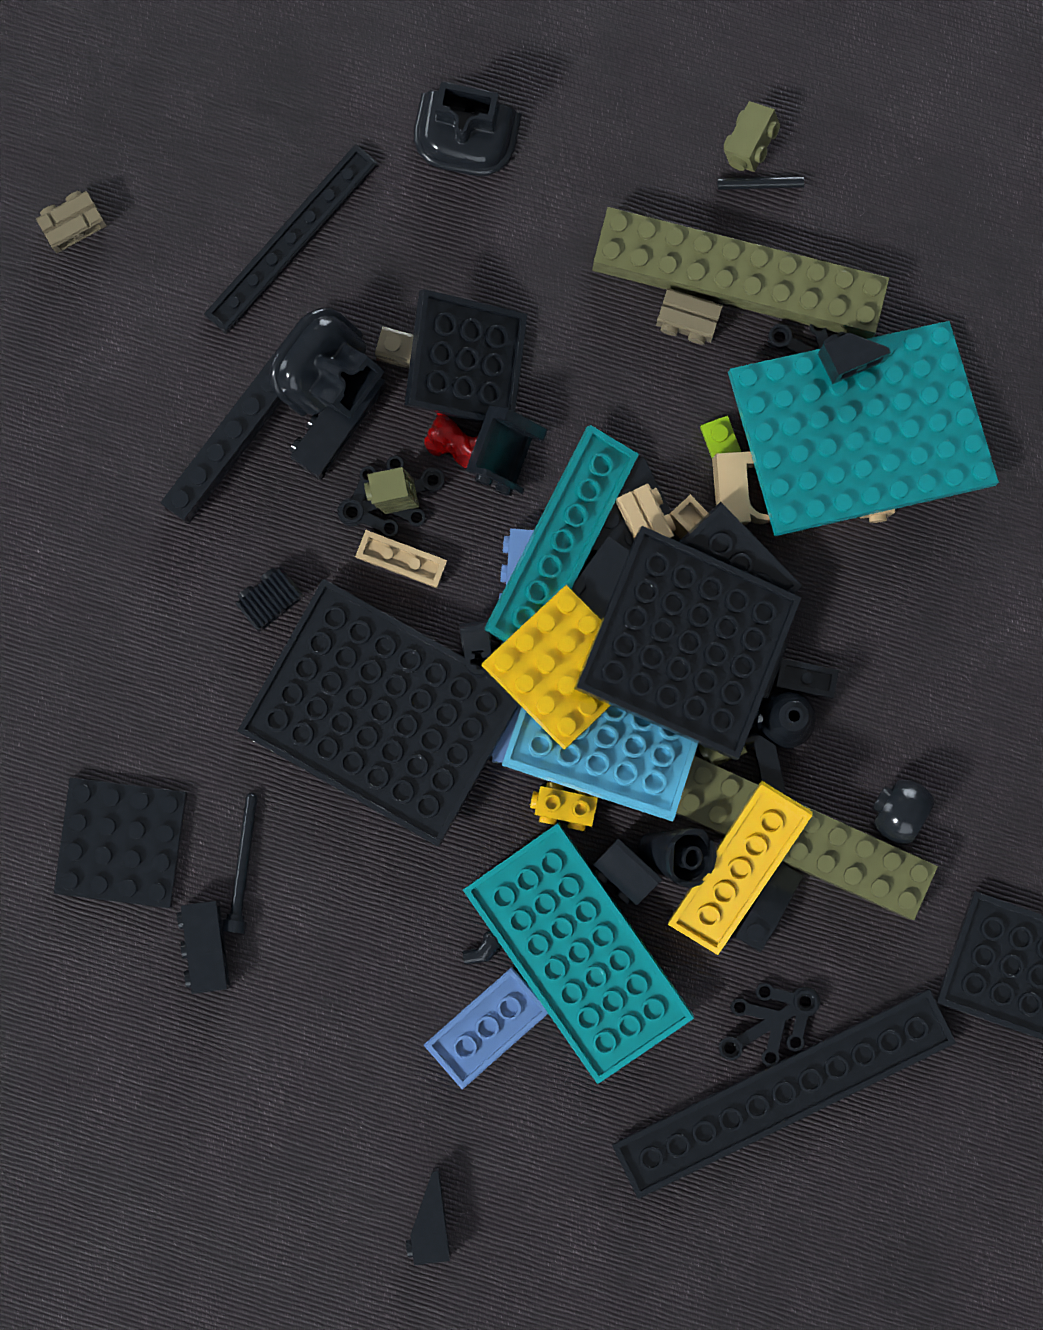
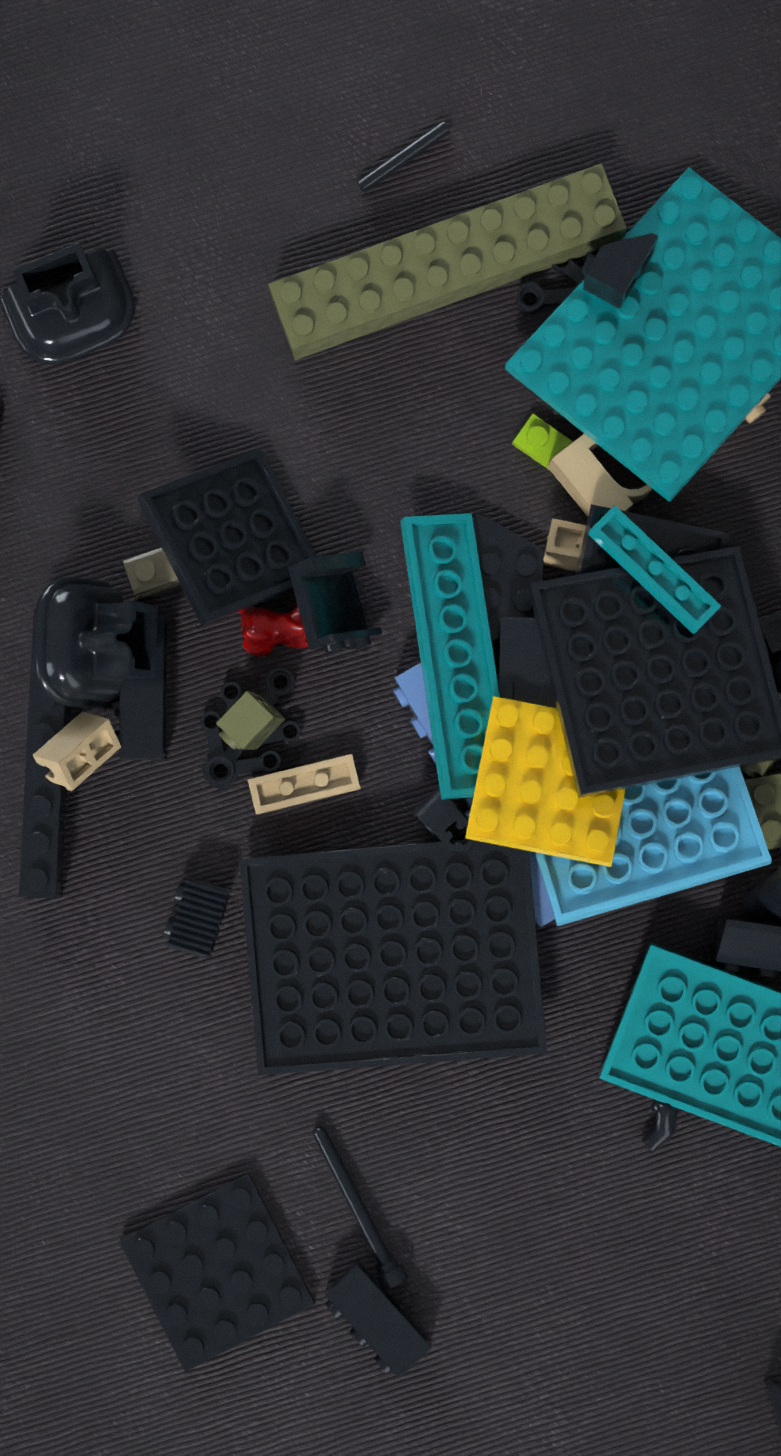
camera: 30 degrees left, 0 degrees up
(266, 431) = (78, 750): none -> tan hinge
(486, 1028) = (719, 1201): medium blue tile -> none
(555, 804) = (634, 925): yellow brick -> none
(643, 509) = (516, 567): tan brick -> none
(688, 316) = (425, 340): dark tan brick -> none
(731, 573) = (654, 569): none -> teal plate
(751, 137) = (363, 116): olive brick -> none

